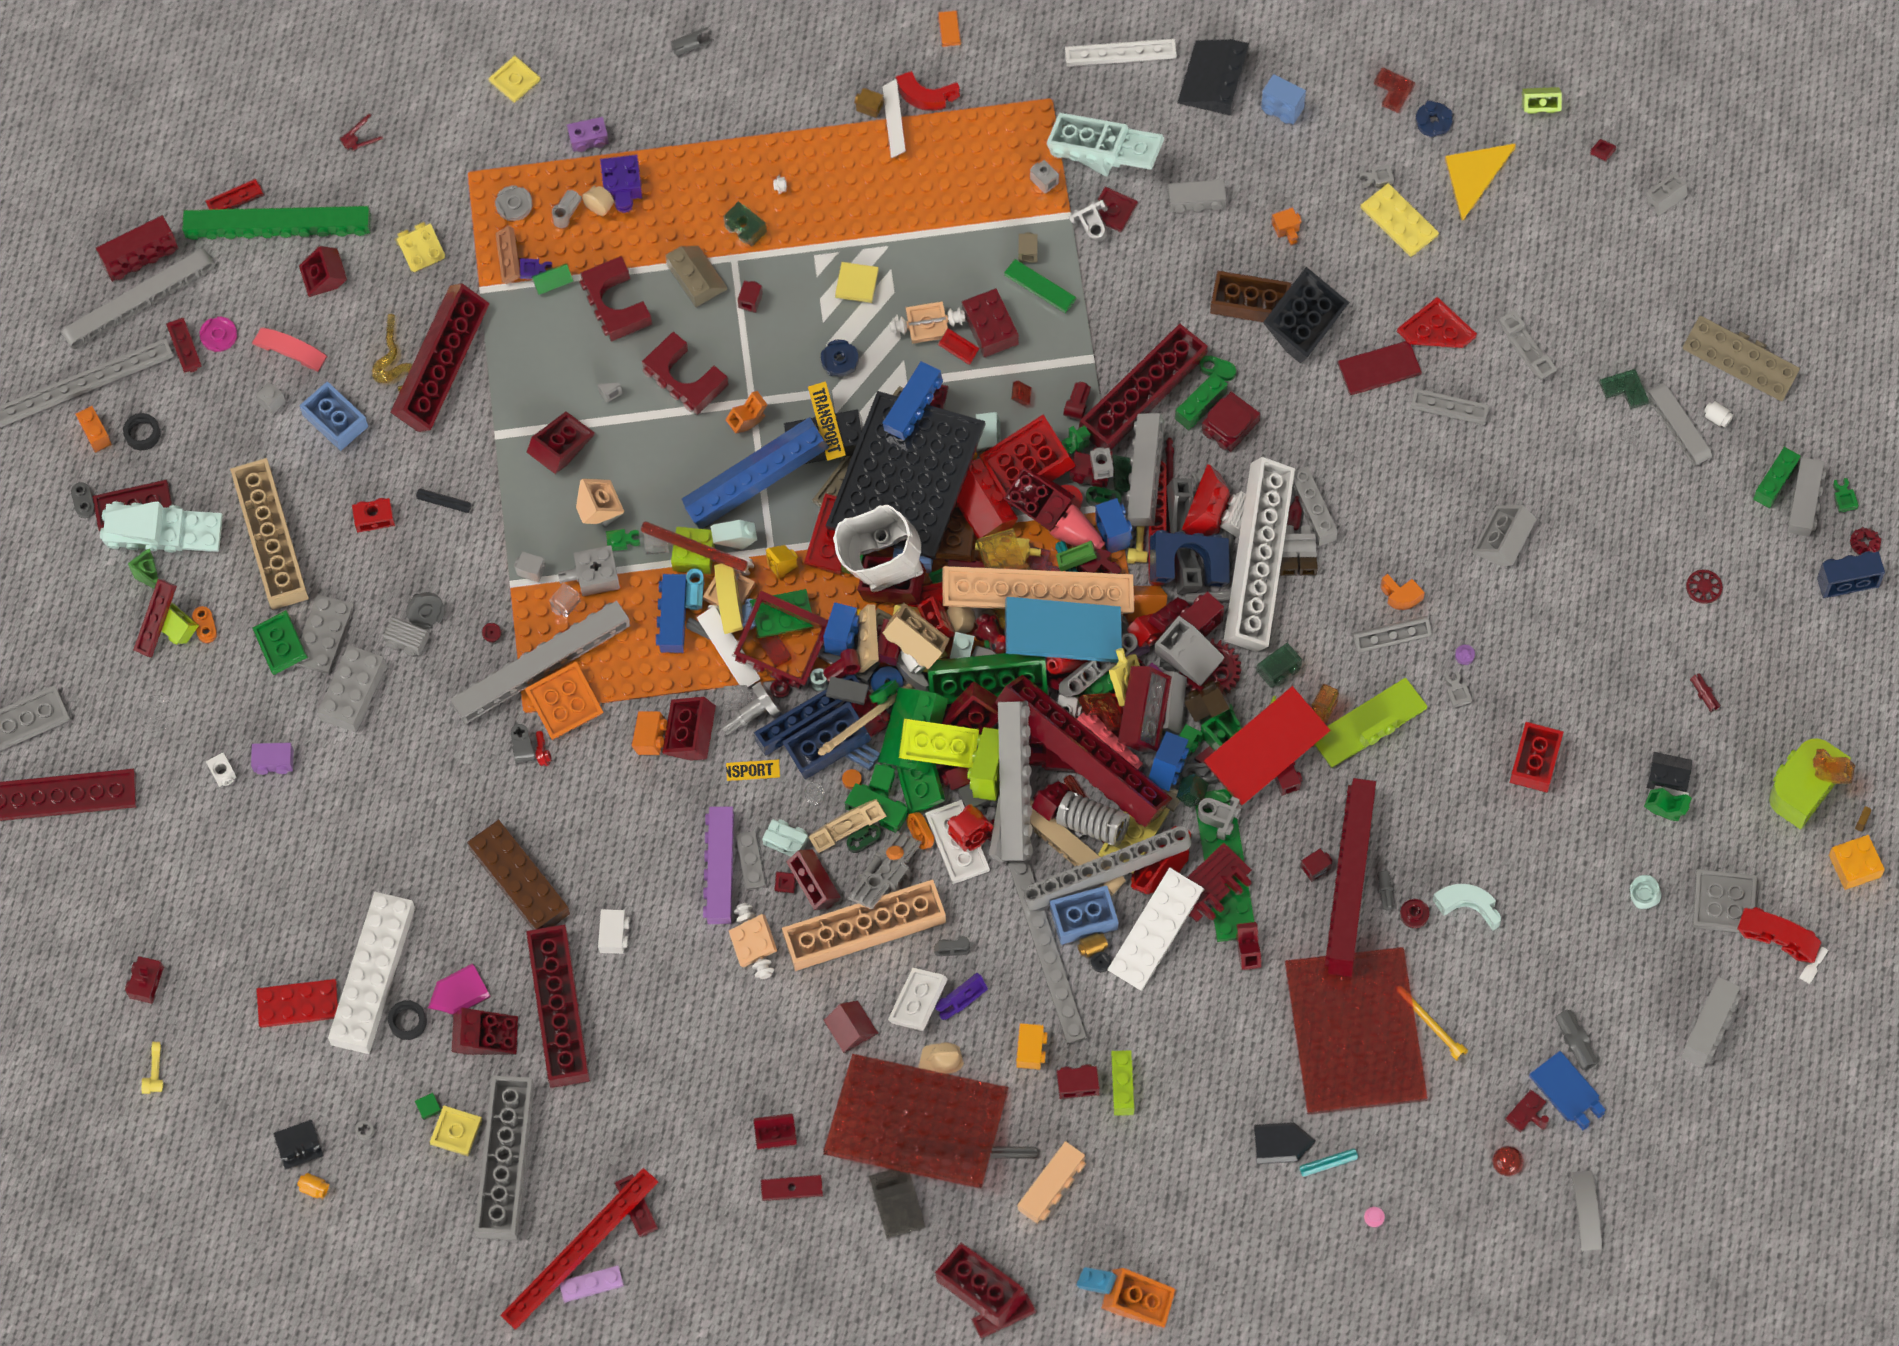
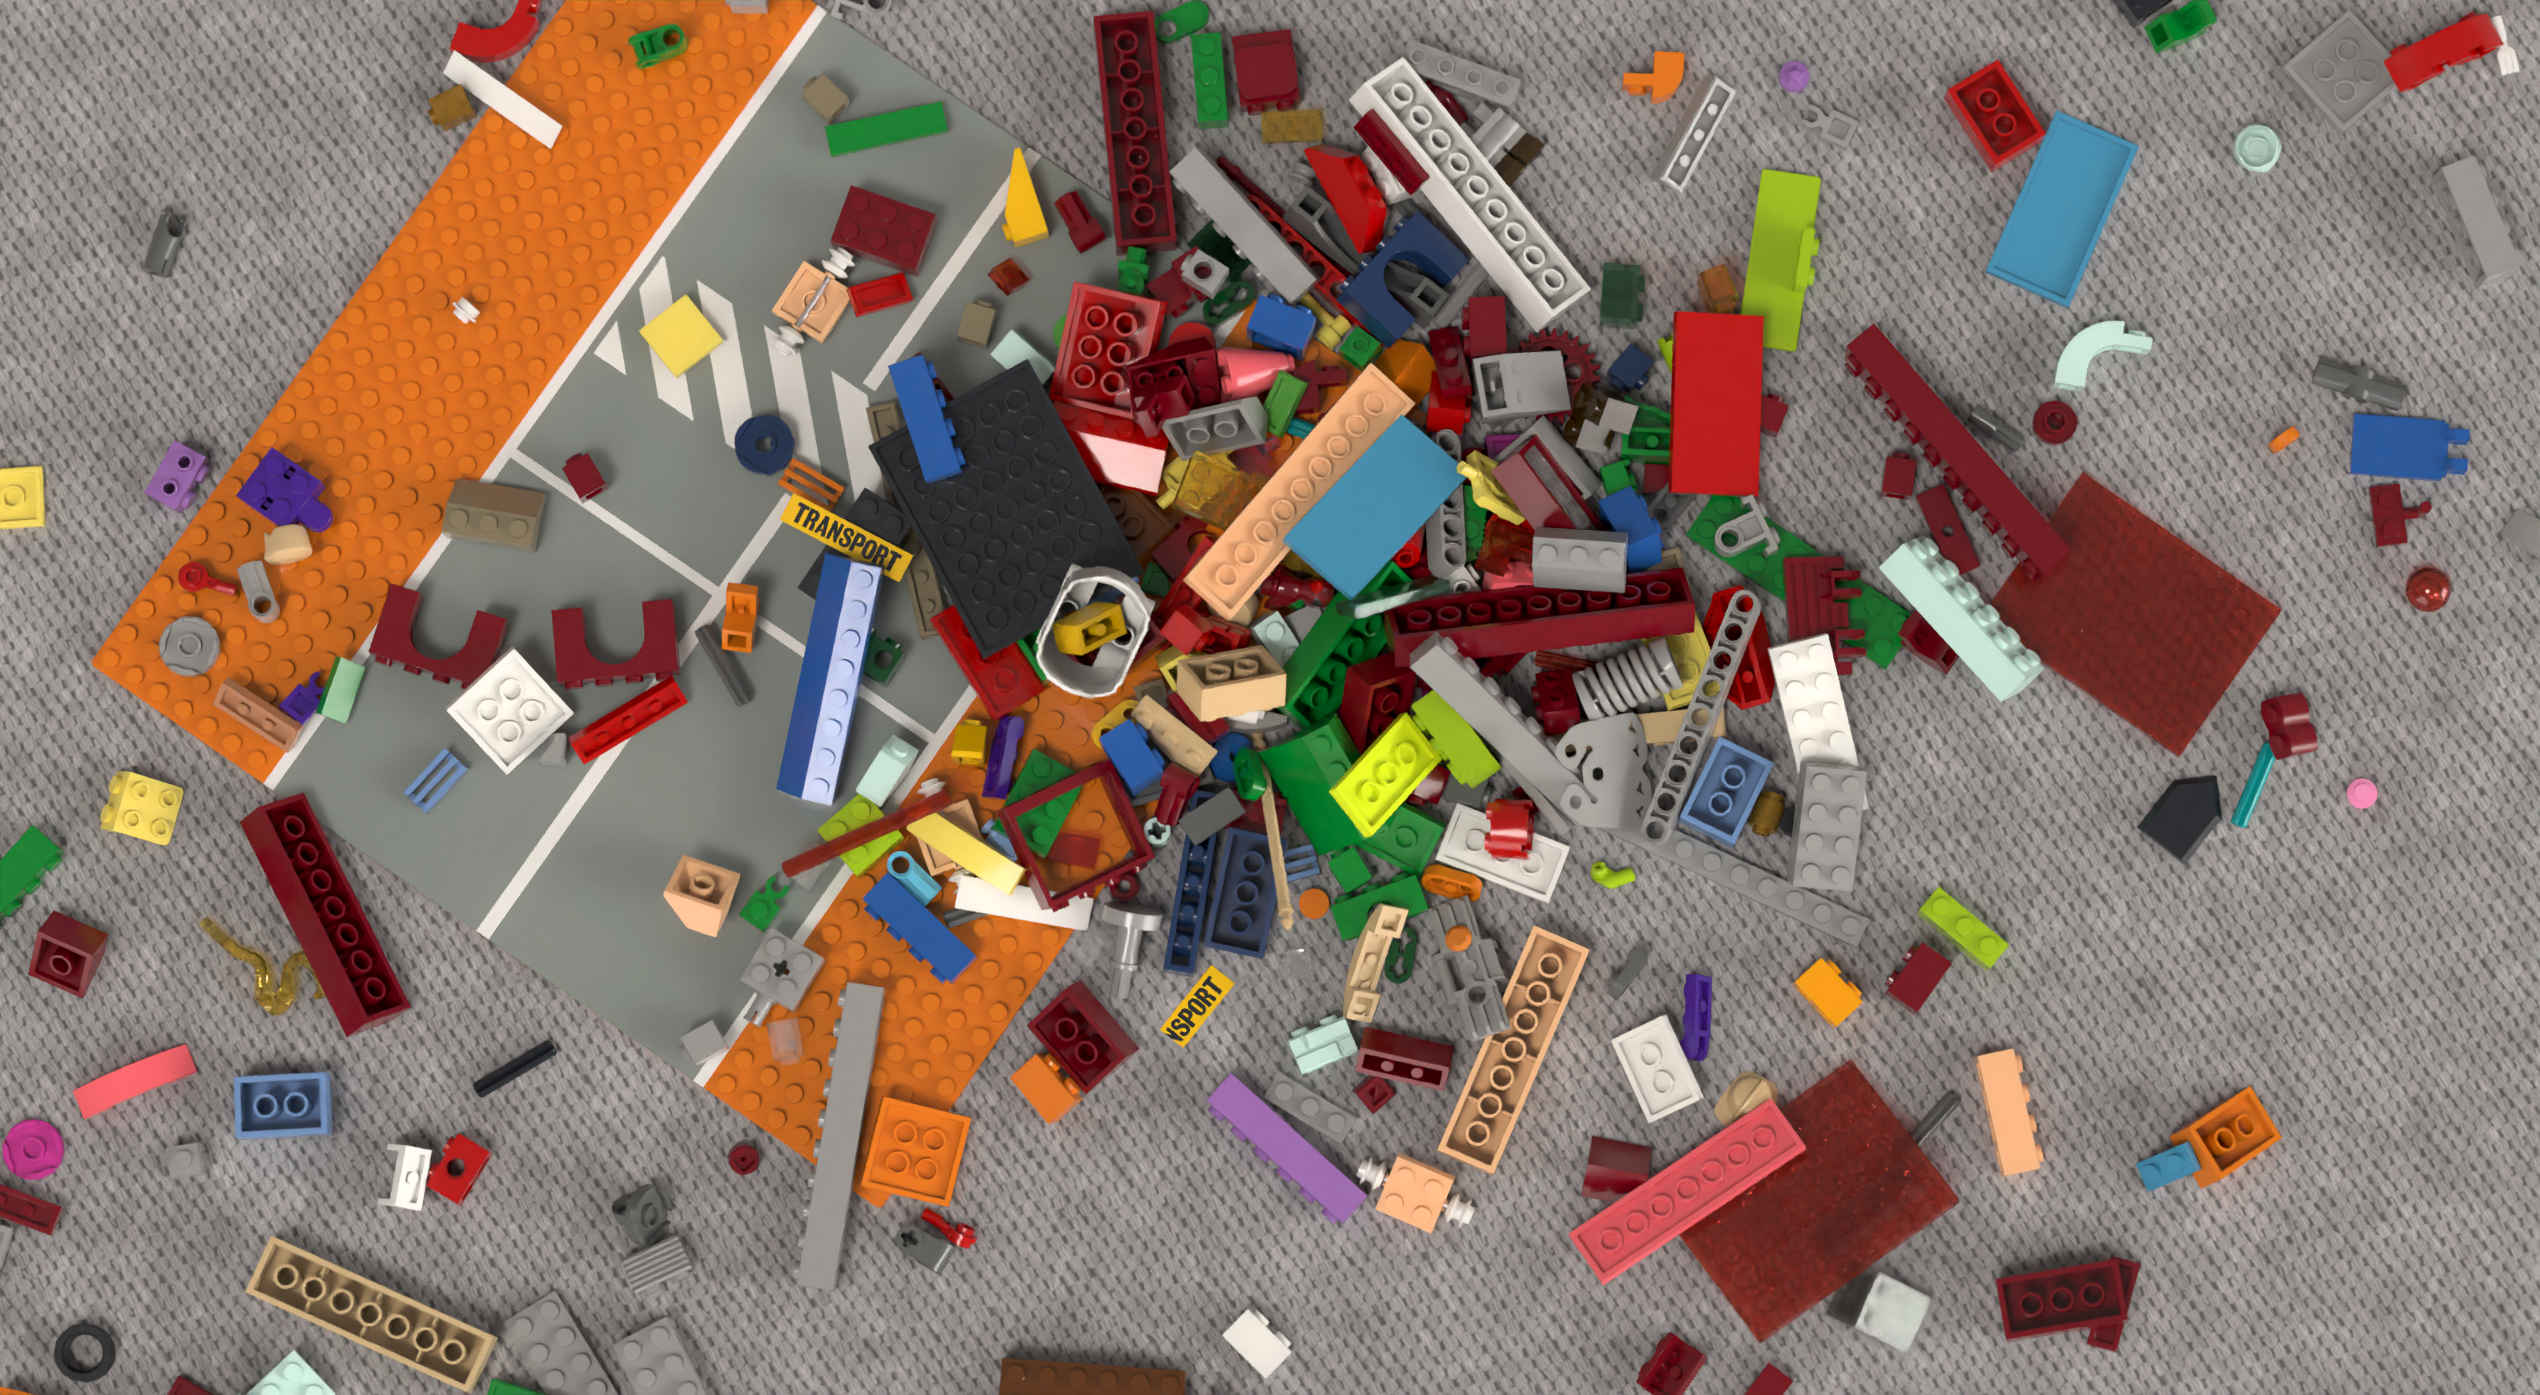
camera: 50 degrees left, 15 degrees up
(348, 494) = (409, 1177): none -> white panel
(547, 178) = (195, 578): none -> red plate
(547, 350) = (425, 775): none -> medium blue tile
(559, 442) = (570, 867): dark red slope -> none
(609, 353) = (509, 710): none -> white plate
(653, 408) = (627, 720): none -> red plate
(718, 427) = (723, 665): none -> dark grey axle
(741, 215) = (465, 392): clear green brick -> none
(786, 483) = (877, 646): none -> dark green brick
(790, 580) = (1002, 757): none -> dark purple hinge
(837, 380) = (789, 473): none -> orange tile
(869, 1061) = (1687, 1191): none -> coral plate
(878, 546) = (1089, 628): none -> yellow brick
(924, 600) = (1187, 630): none -> red brick
(980, 157) = (655, 45): none -> green piece
(985, 398) = (977, 324): none -> dark tan brick
(992, 901) = (1608, 878): none -> lime arm
(1021, 496) = (1162, 401): none -> dark red brick
(1027, 674) = (1393, 597): none -> clear green tile
(1037, 533) = (1218, 428): none -> light grey slope
(1048, 855) = (1622, 772): none -> light grey piece
(1060, 370) = (1022, 211): none -> yellow slope
(1110, 972) = (1826, 826): none -> light grey brick
(1126, 740) = (1579, 559): none -> light grey slope
(1140, 572) = (1360, 349): none -> green brick
(1192, 790) = (1687, 535): clear green brick -> none
(1215, 456) = (1291, 127): none -> clear yellow plate
(1243, 500) = (1391, 152): none -> dark red tile
(1248, 700) = (1630, 370): none -> dark blue brick
(1273, 947) = (1962, 617): none -> light aqua brick
(1316, 900) = (1940, 514): none -> dark red tile
(1372, 1150) = (2289, 726): none -> dark red brick
(1455, 1048) = (2250, 523): yellow piece -> none
(1514, 1028) = (2284, 440): none -> orange tile
(1524, 829) = (2062, 209): none -> dark azure tile

